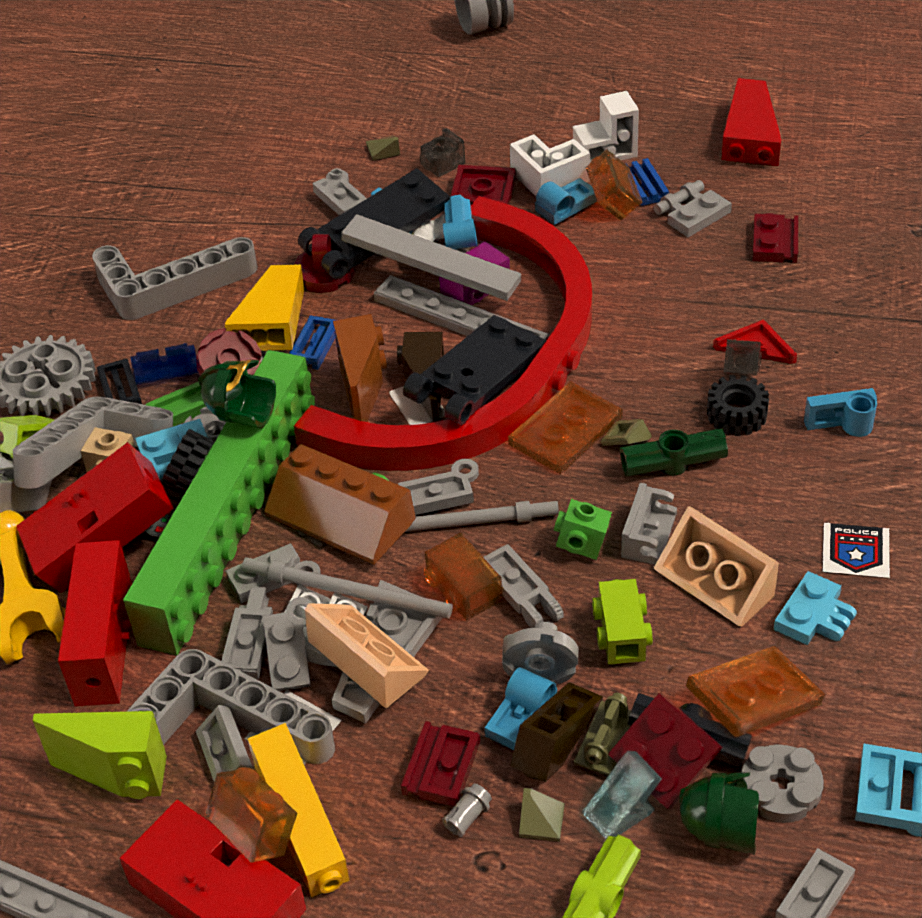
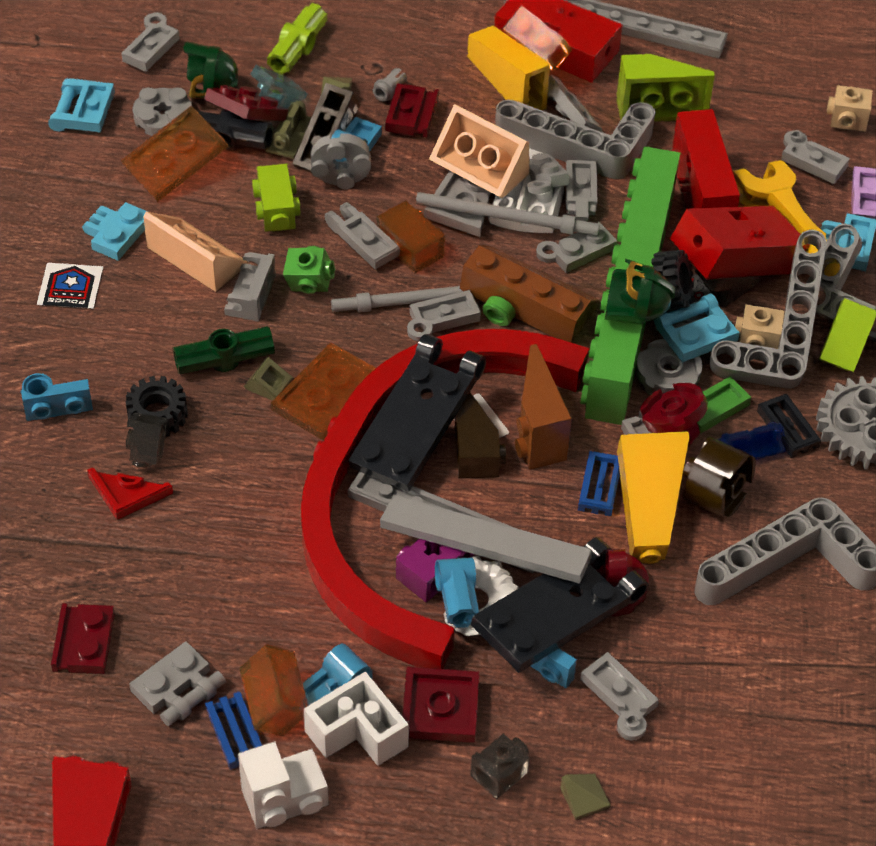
camera: 170 degrees right, 5 degrees up
(202, 311) = (718, 477): none -> dark brown brick

